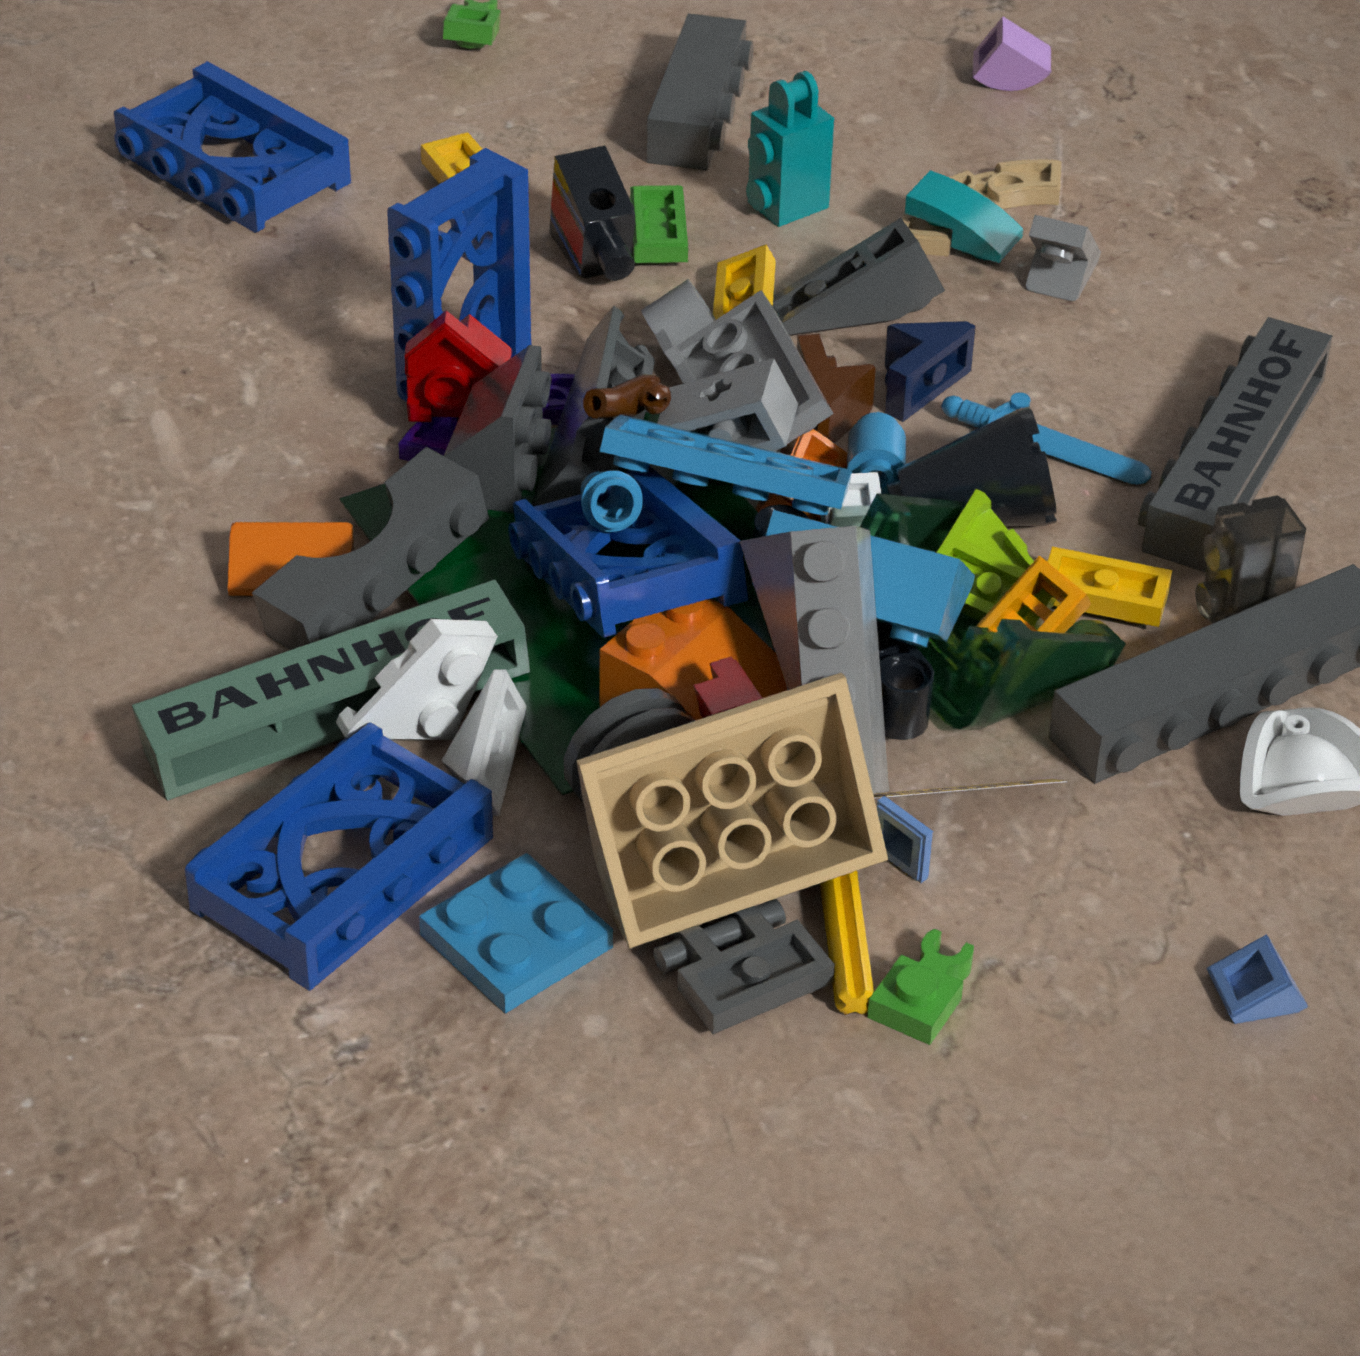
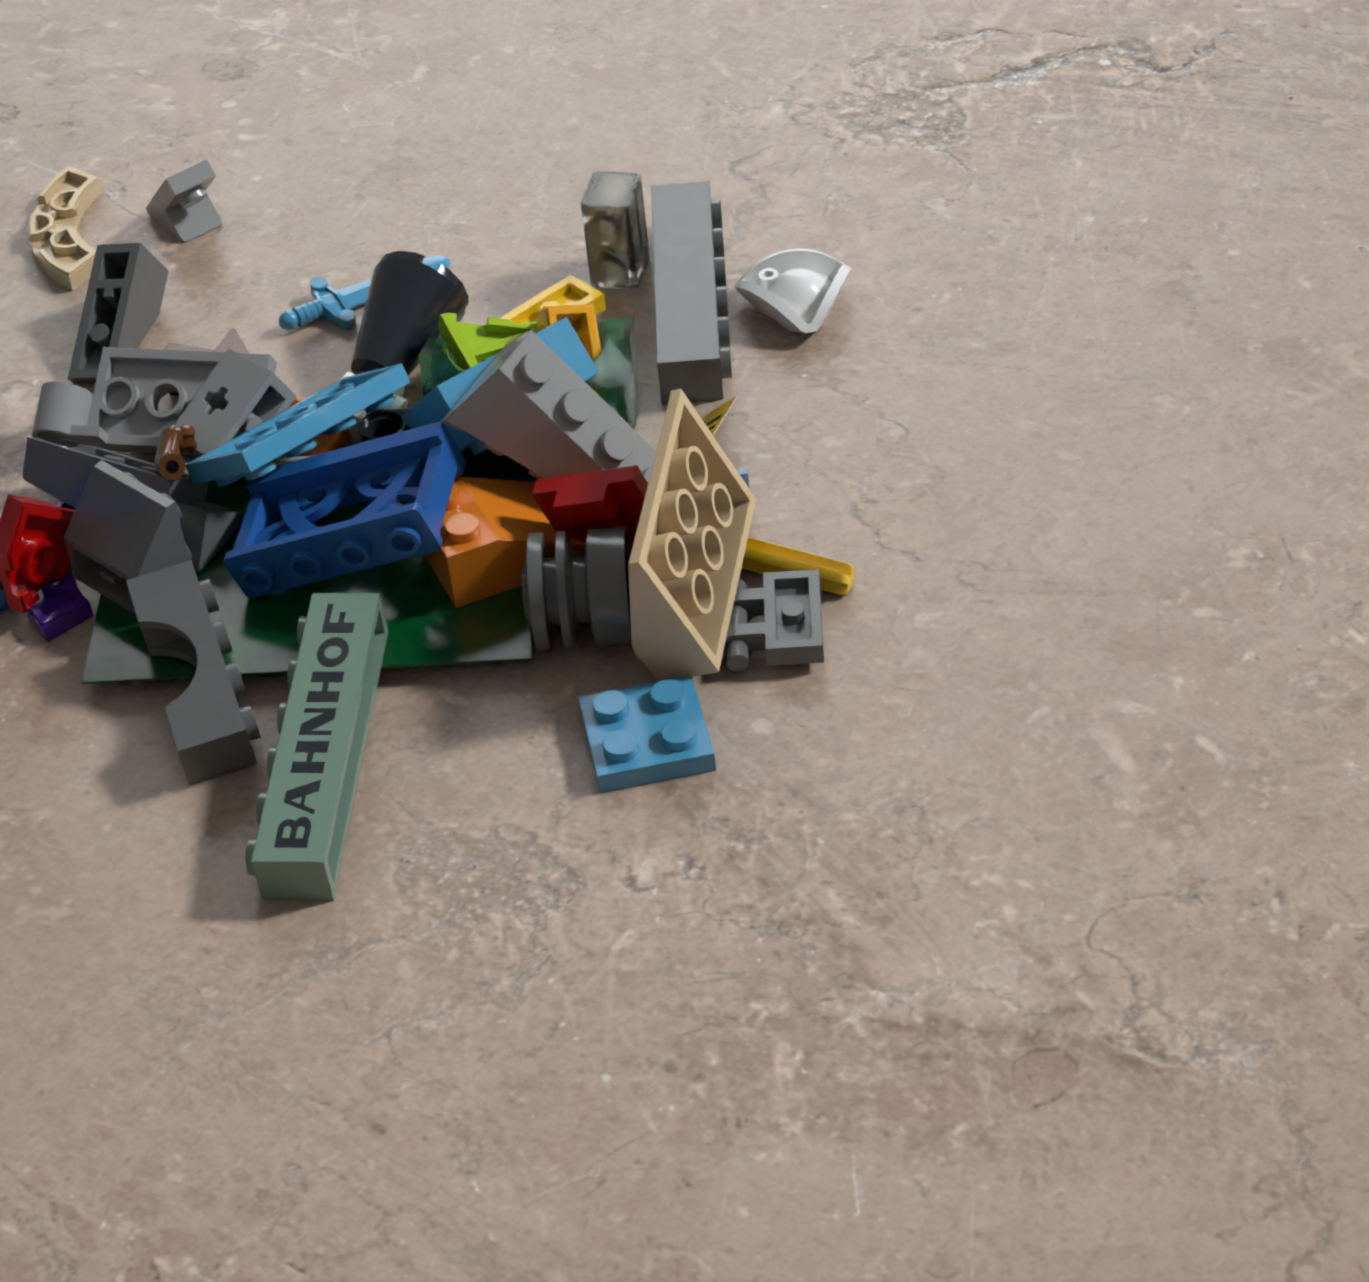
camera: 55 degrees left, 0 degrees up
(265, 547) = (123, 736): orange slope -> none
(326, 799) = (510, 727): blue fence -> none
(428, 684) = (383, 681): white wing -> none
(489, 737) = (453, 683): white slope -> none
(619, 508) = (287, 496): dark azure cone -> none
(742, 278) = (46, 362): yellow plate -> none
(877, 446) = (309, 367): dark azure brick -> none
(922, 994) = (862, 545): bright green plate -> none
(924, 363) = (228, 306): dark blue slope -> none
(976, 221) = (78, 229): teal slope -> none
(1236, 439) = (467, 199): dark grey brick -> none
(1256, 983) = (965, 389): medium blue slope -> none

